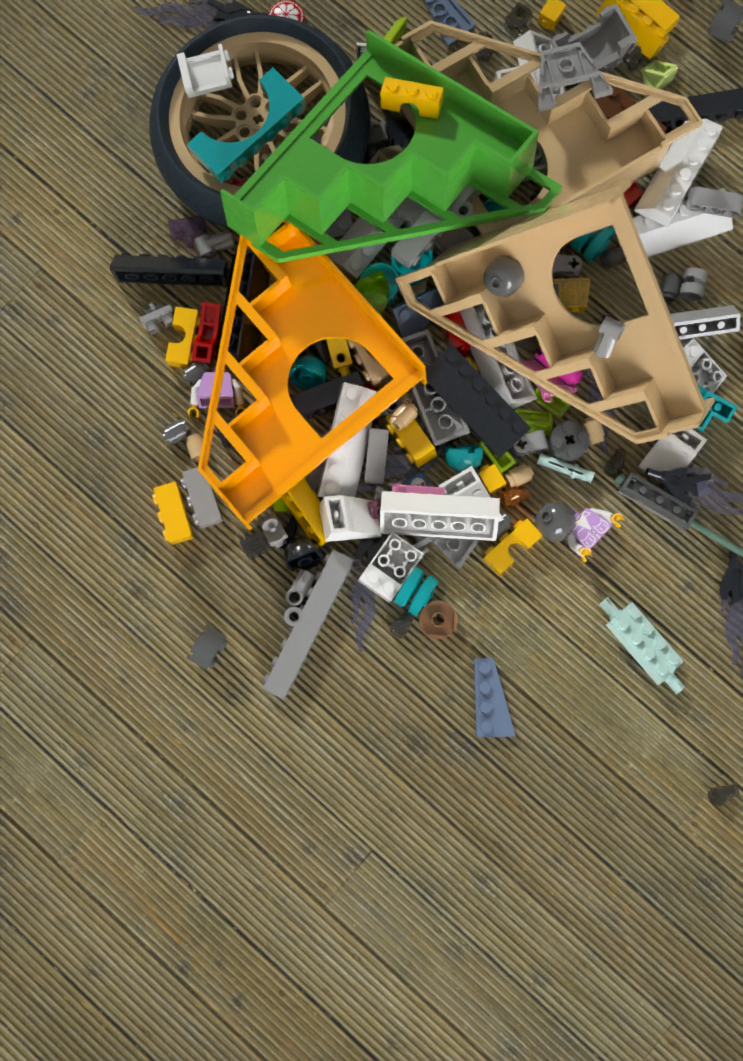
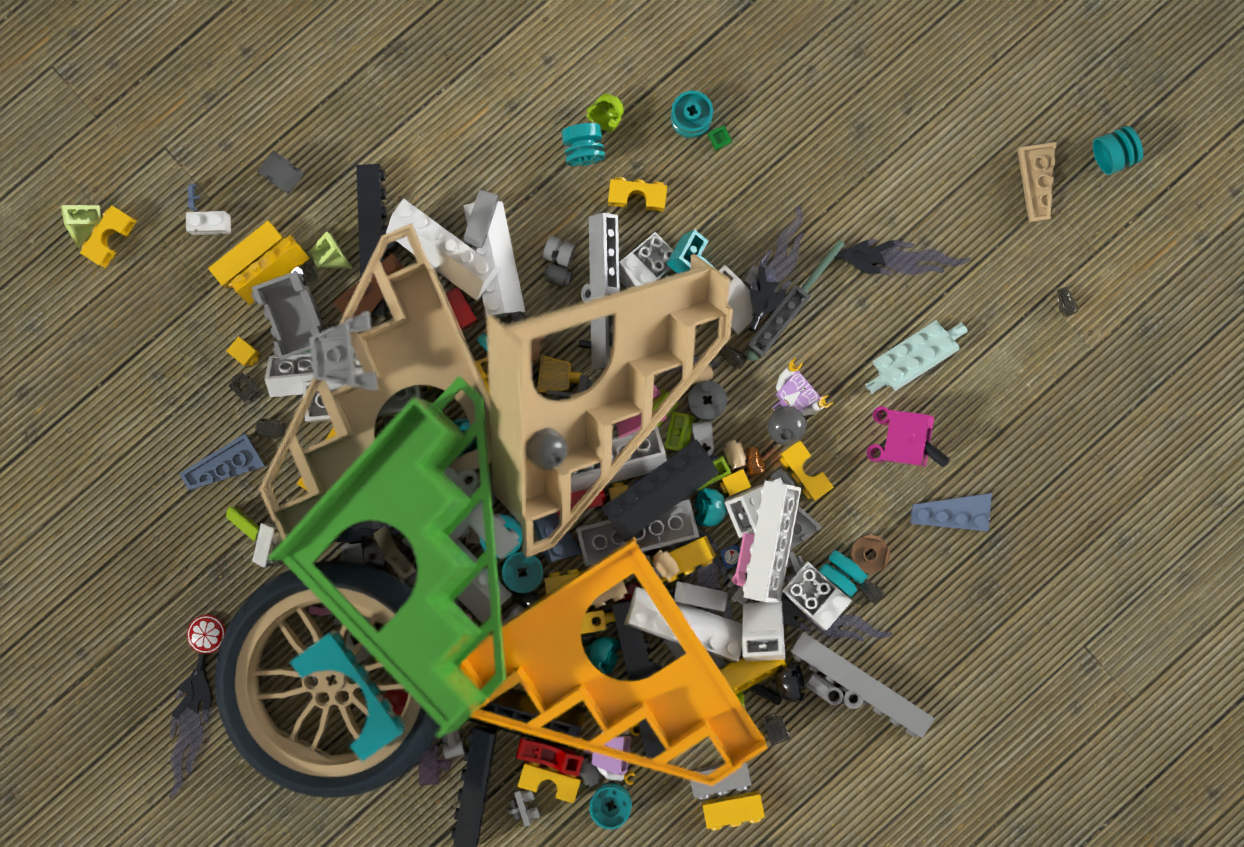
camera: 85 degrees left, 5 degrees up
(159, 387) = (600, 811): none -> teal wheel
(176, 431) = (648, 798): dark grey brick -> none
(194, 446) = (666, 781): tan brick -> none
(206, 72) = (279, 733): white panel -> none
(207, 647) = (875, 789): dark grey brick -> none
(273, 530) = (764, 709): light grey hips -> none
(374, 290) = (534, 581): clear neon green brick -> none
(374, 508) = (753, 605): clear pink tile -> none
(425, 97) = (344, 533): yellow arch -> none
(559, 639) = (906, 439): none -> dark pink piece
(587, 475) = (731, 407): light aqua pin -> none
(601, 272) = (536, 345): none -> medium nougat plate
(609, 333) = (626, 353): light grey piece -> none

